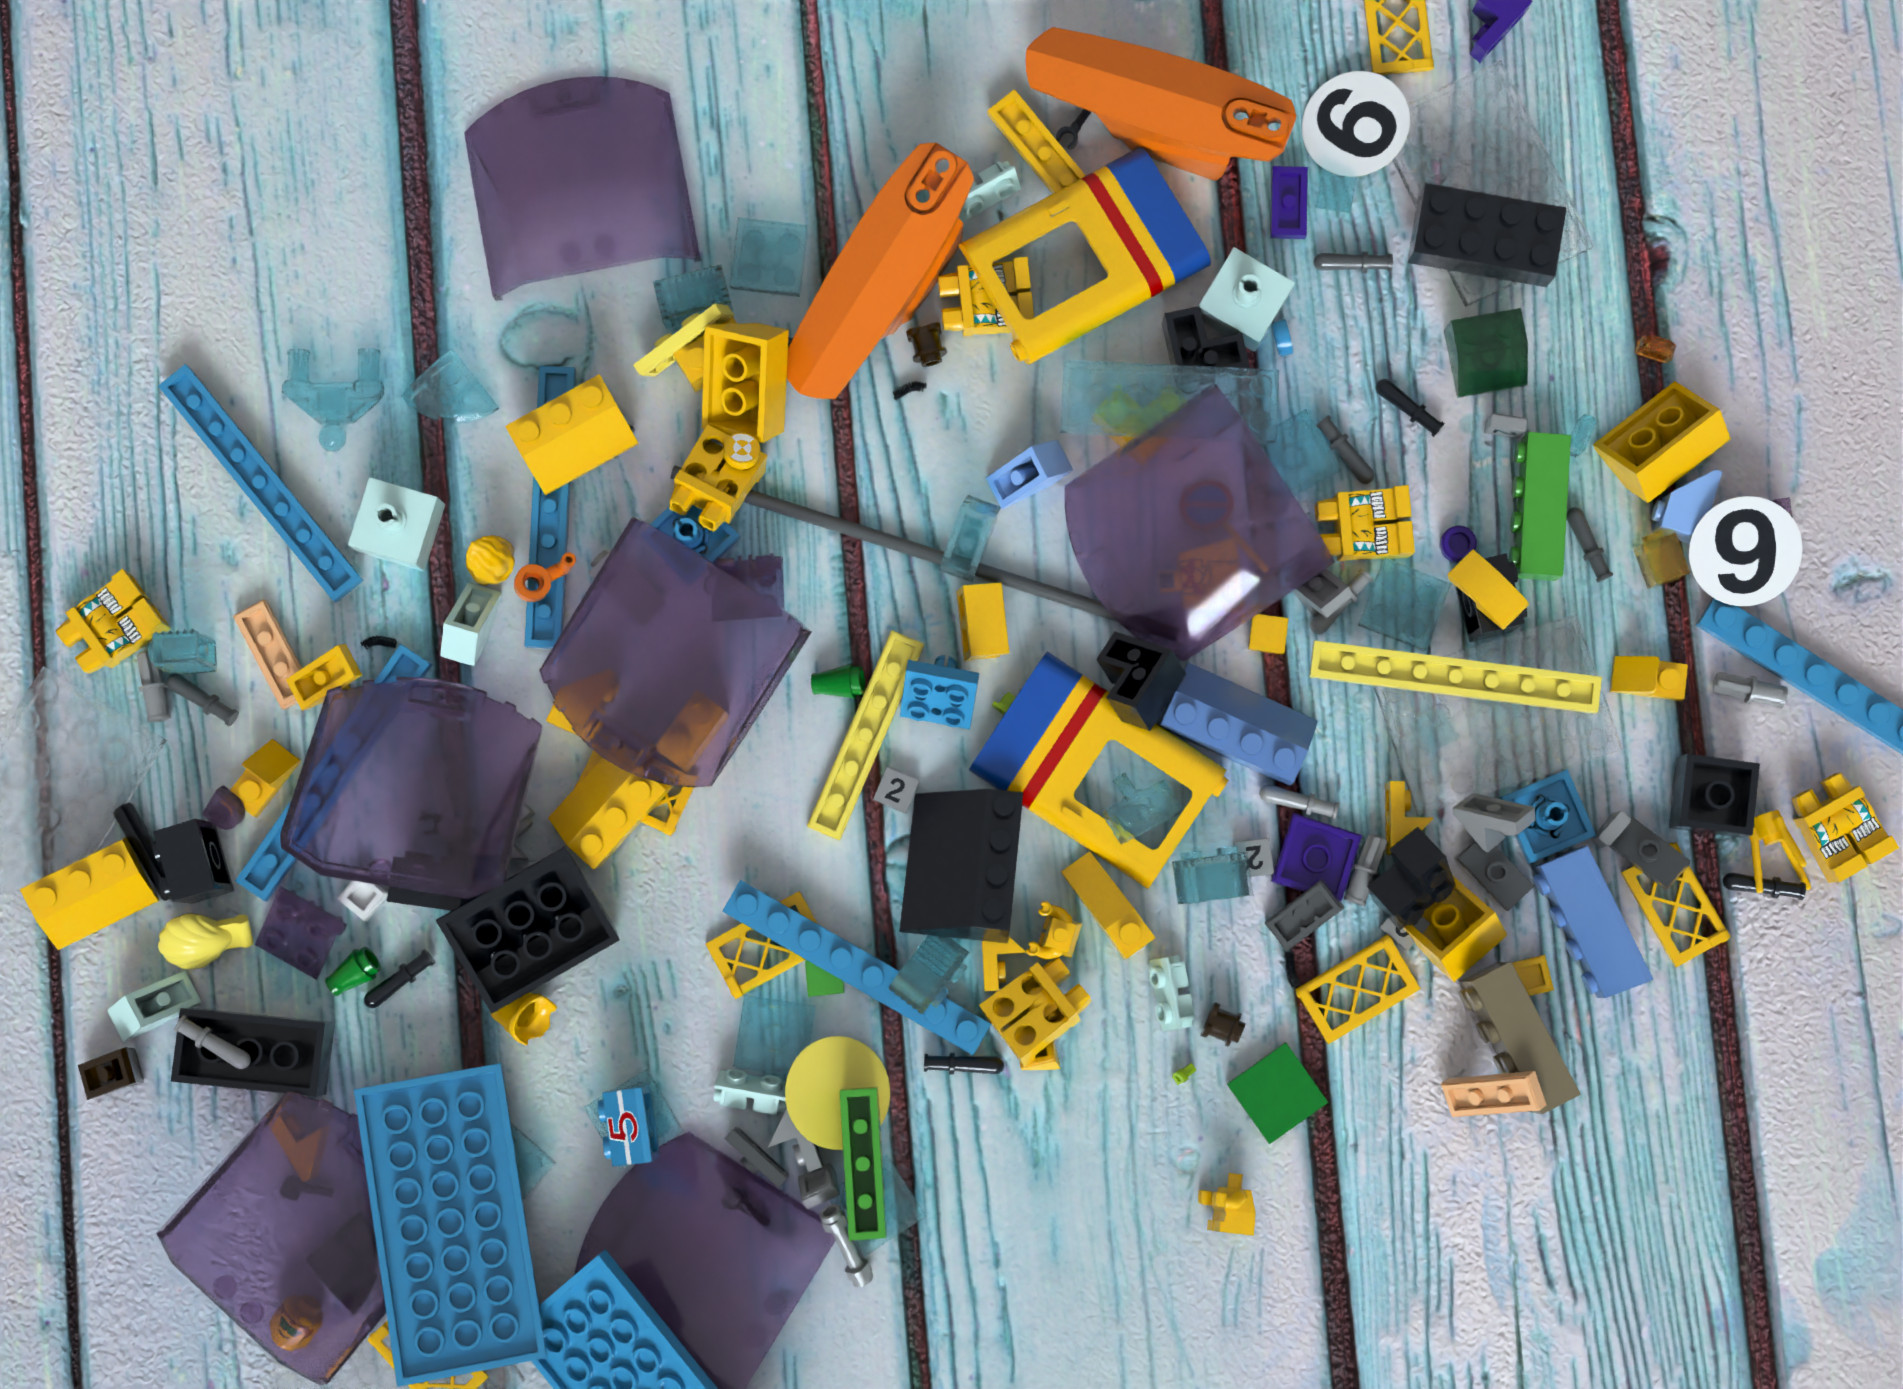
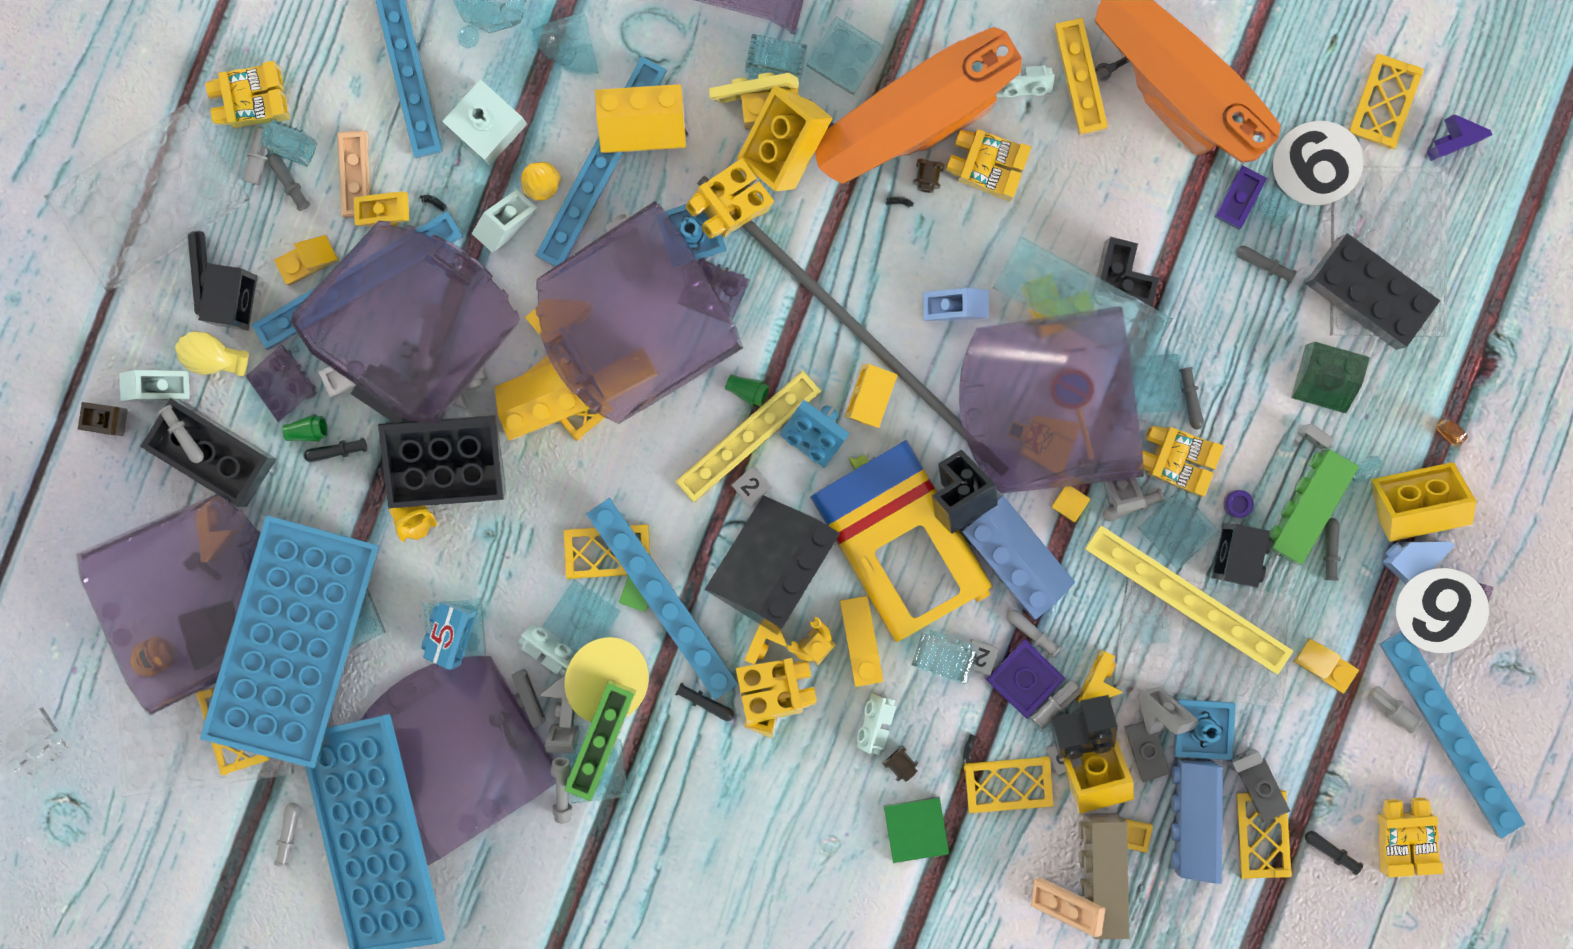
camera: 20 degrees right, 5 degrees up
(89, 894) = (144, 284): yellow slope -> none
(224, 809) = (268, 269): clear purple tile -> none
(542, 577) = (571, 212): orange plate -> none
(741, 450) = (757, 189): yellow tile -> none
(928, 971) = (712, 627): clear light blue brick -> none
(969, 538) = (890, 331): clear light blue slope -> none
(1132, 230) = (1116, 157): yellow piece -> none
(1140, 808) = (918, 584): clear light blue plate -> none
(1181, 1075) = (854, 785): lime piece -> none
(1232, 1207) = (844, 895): yellow piece -> none
(1245, 298) = (1174, 253): light aqua brick -> none
(1282, 337) = (1186, 294): dark azure tile -> none
(1304, 914) = (997, 715): dark grey plate -> none
(1402, 401) = (1249, 380): black piece -> none
(1488, 589) = (1243, 551): yellow slope -> none
(1661, 559) = (1378, 586): clear yellow brick -> none
(1714, 795) = (1330, 773): black brick -> none
(1772, 829) = (1358, 815): yellow plant -> none

